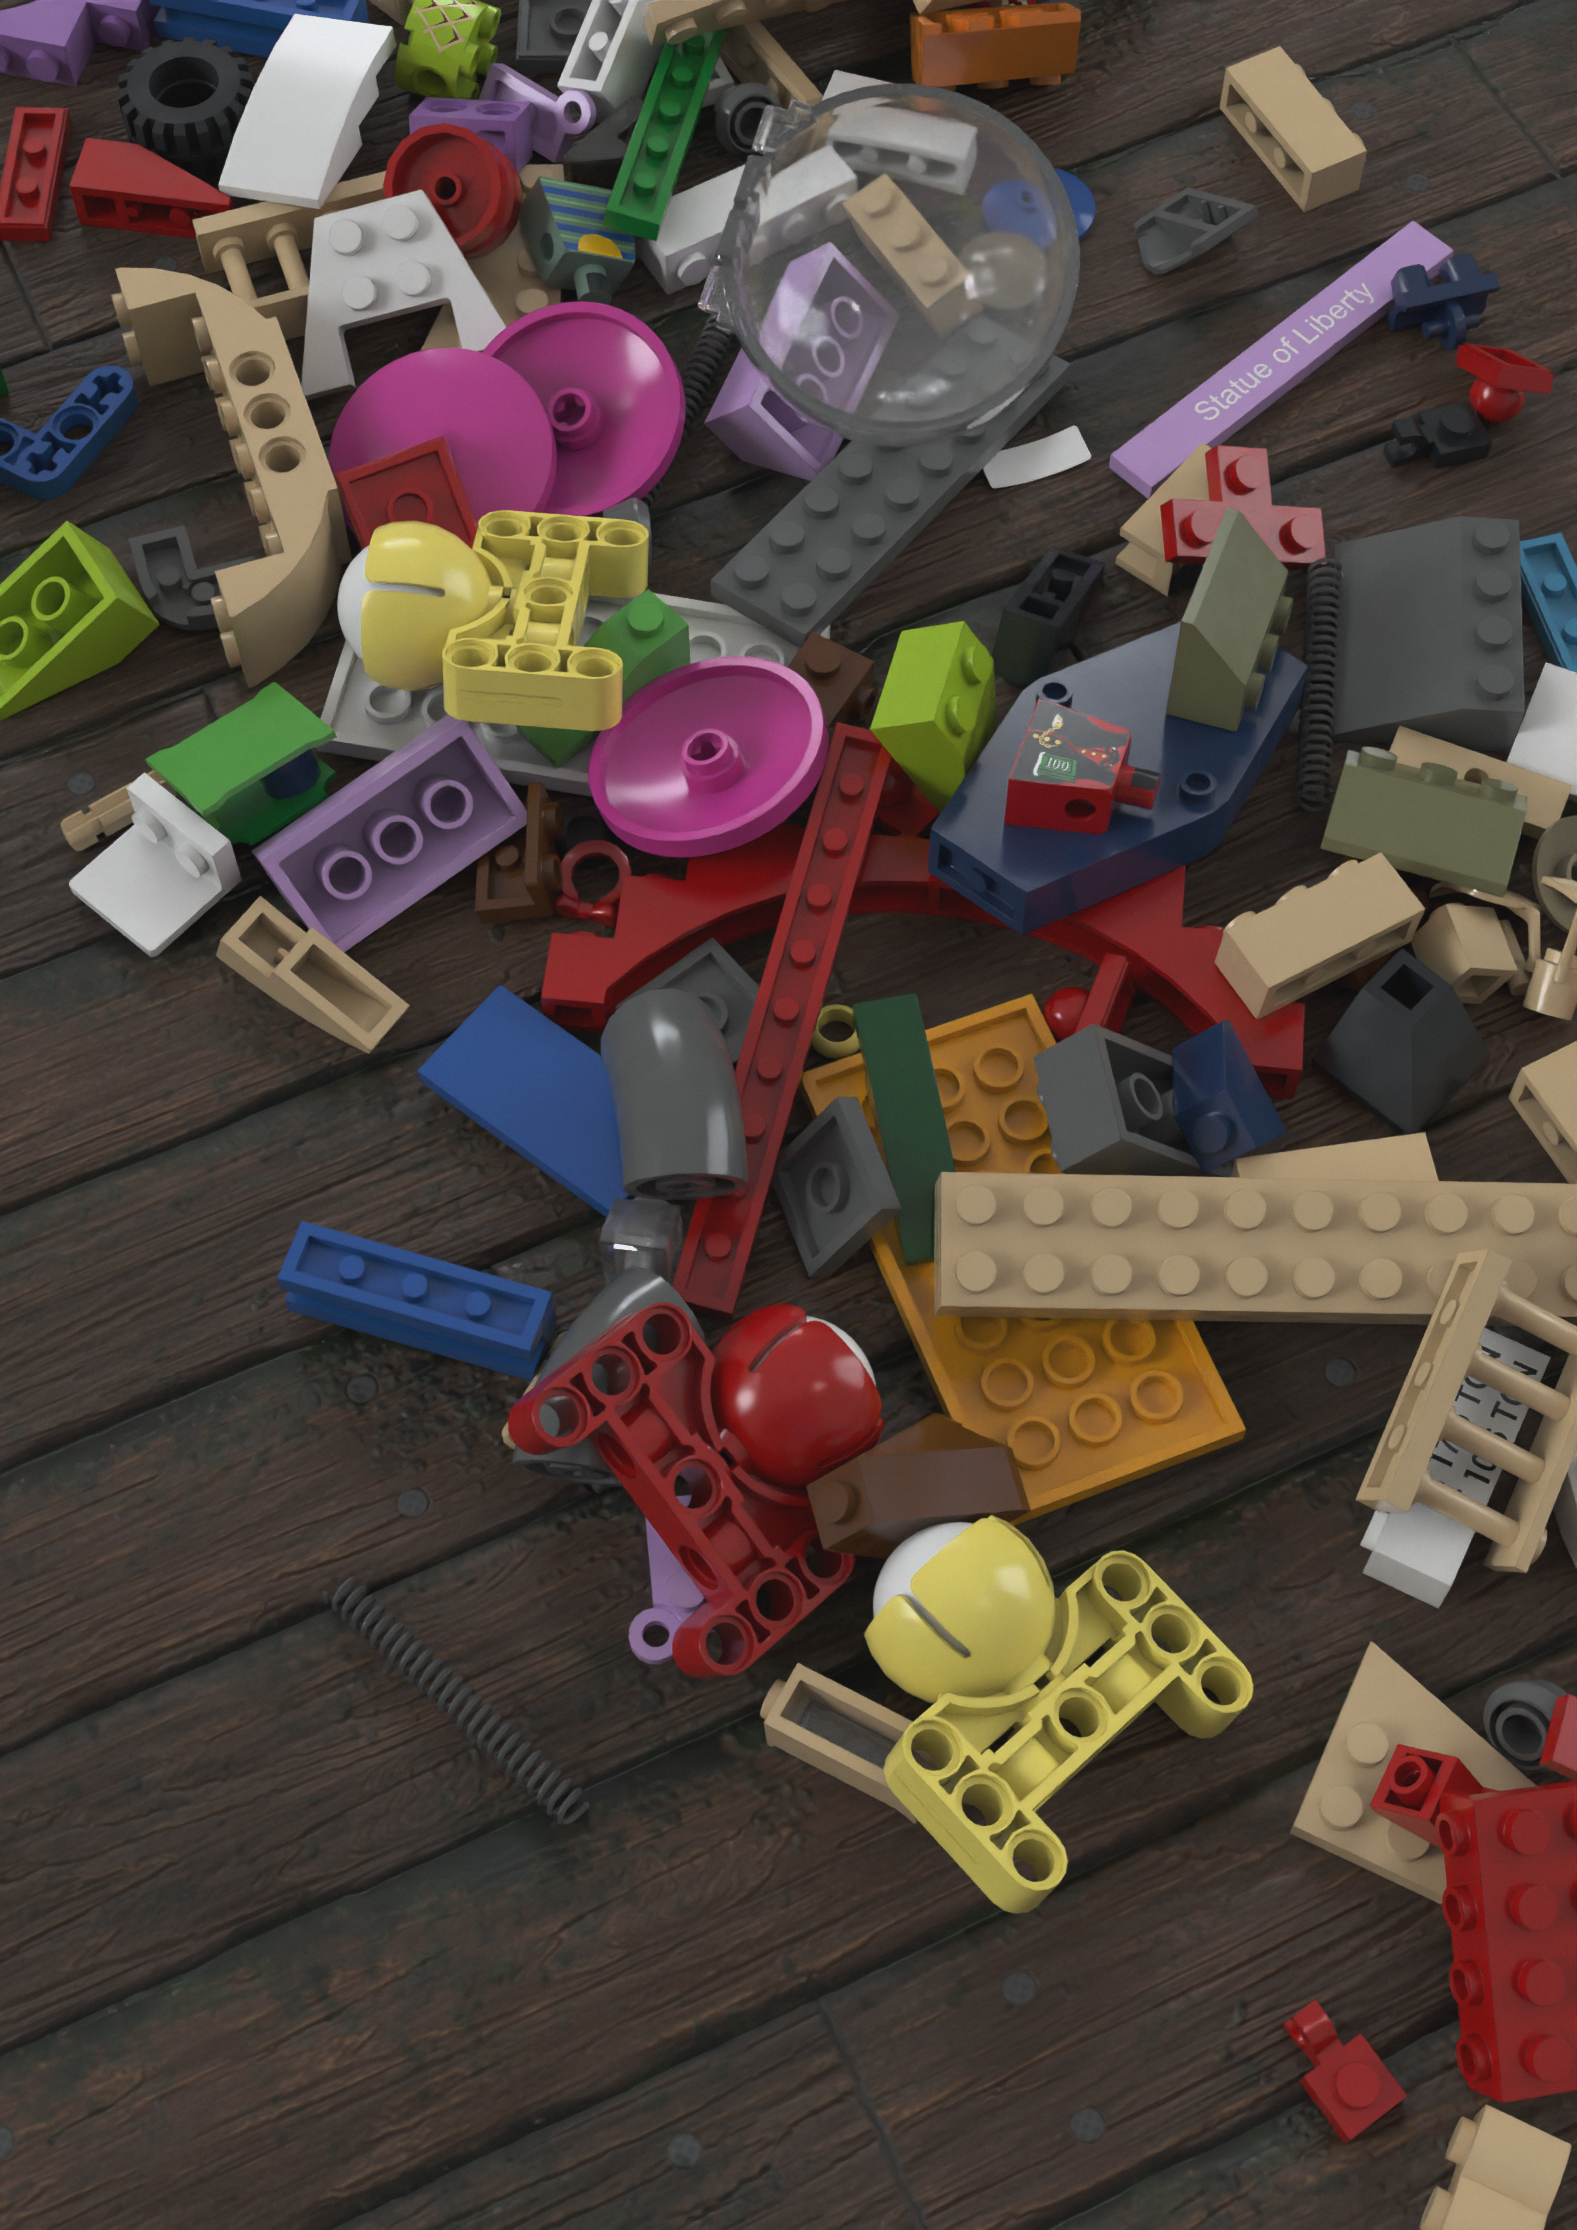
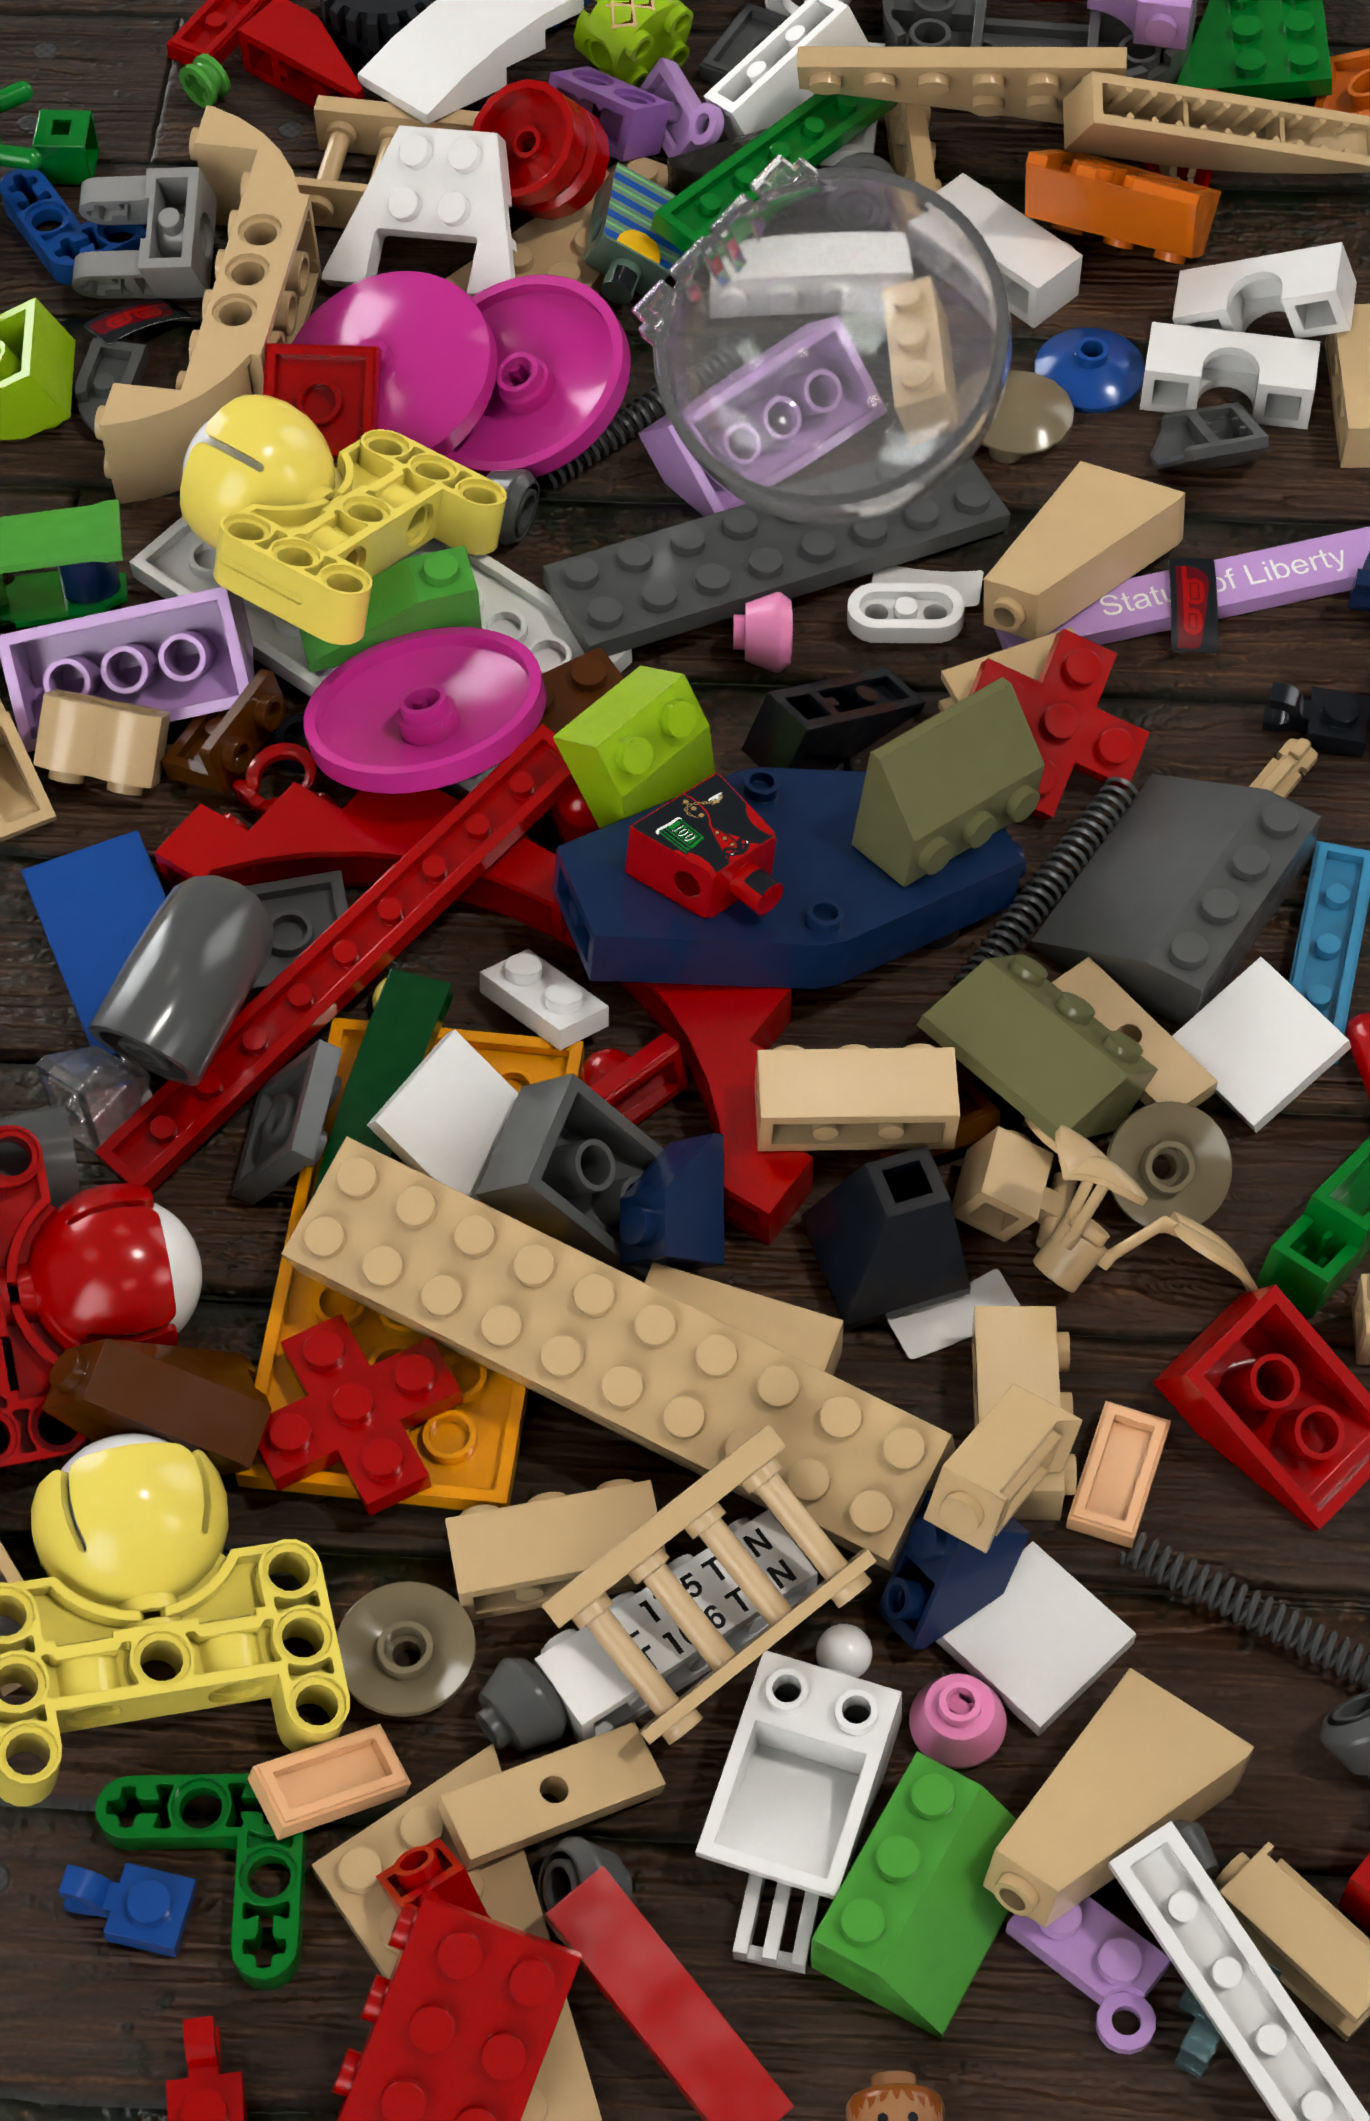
camera: 30 degrees right, 5 degrees down
(59, 248) = (205, 80): none -> bright green bush
(149, 505) = (133, 316): none -> sticker
(158, 426) = (178, 241): none -> light grey brick
(413, 916) = (101, 740): none -> tan brick
(938, 557) = (766, 632): none -> bright pink cone
(970, 972) = (544, 999): none -> white plate
(988, 1111) = (448, 1115): none -> white tile
(1036, 490) = (905, 612): none -> white plate
(1073, 1413) = (357, 1414): none -> red plate
(1159, 368) = (1080, 548): none -> tan slope
(1172, 1938) = (141, 1911): none -> blue plate
(1197, 59) = (1308, 284): none -> white arch
(1207, 149) = (1268, 369): none -> white arch
(1230, 1834) = (254, 1845): none -> green beam
(1262, 1746) = (328, 1781): none -> light nougat tile
(1265, 1574) = (398, 1620): none -> dark tan dish
(1275, 381) = (1193, 605): none -> sticker
(1305, 1448) = (531, 1550): none -> tan brick
(1377, 1597) = (520, 1707): none -> dark grey cone
(1438, 492) = (1284, 774): none -> tan axle
(1457, 1659) = (586, 1778): none -> tan tile
(1489, 1088) = (952, 1320): none -> white sticker

